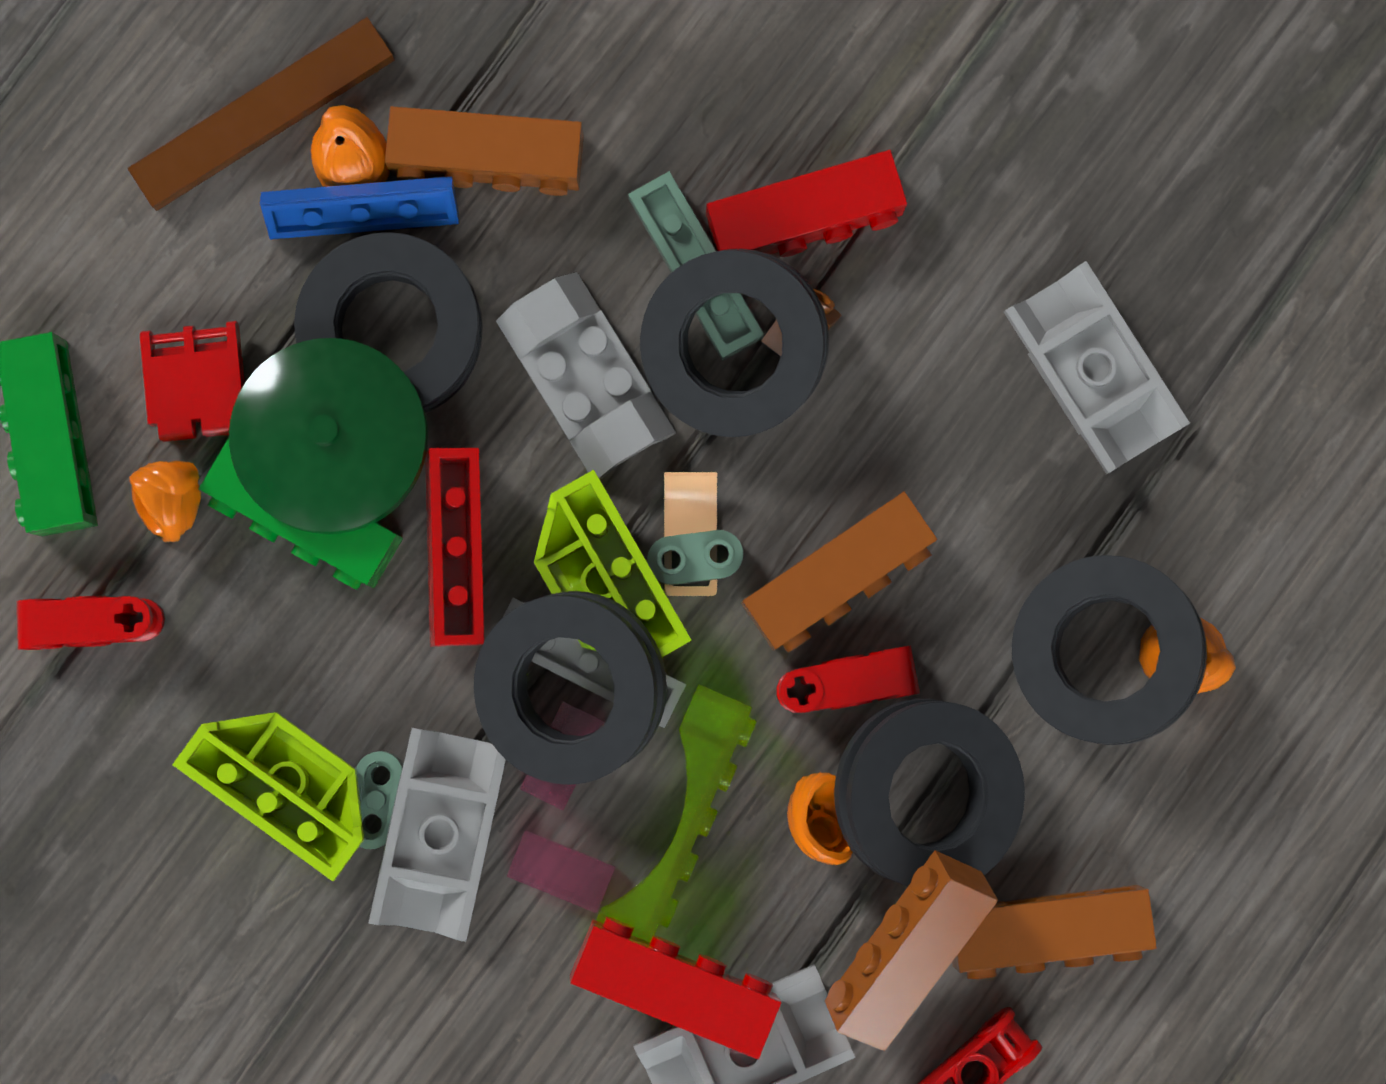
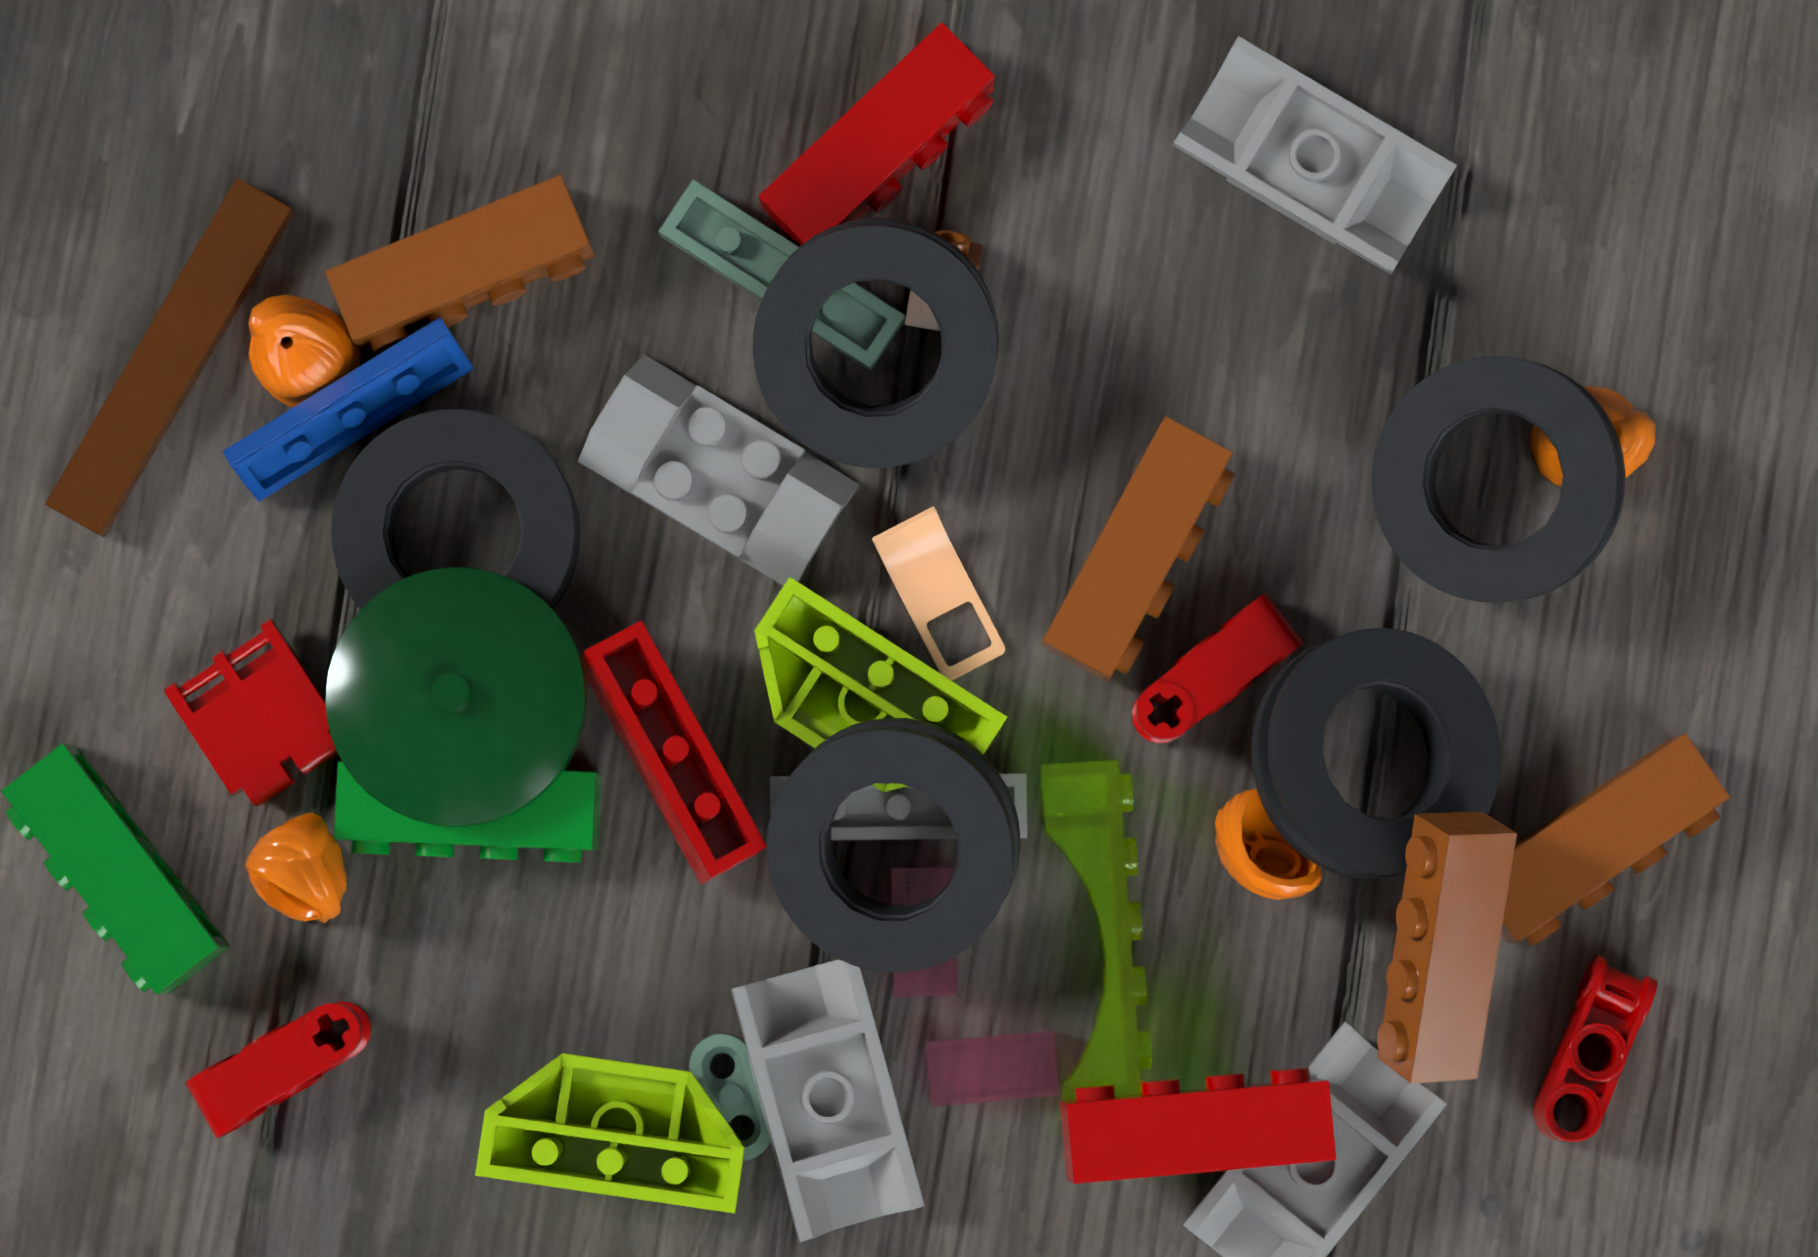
camera: 20 degrees left, 0 degrees up
(695, 557) = (959, 619): sand green plate -> none

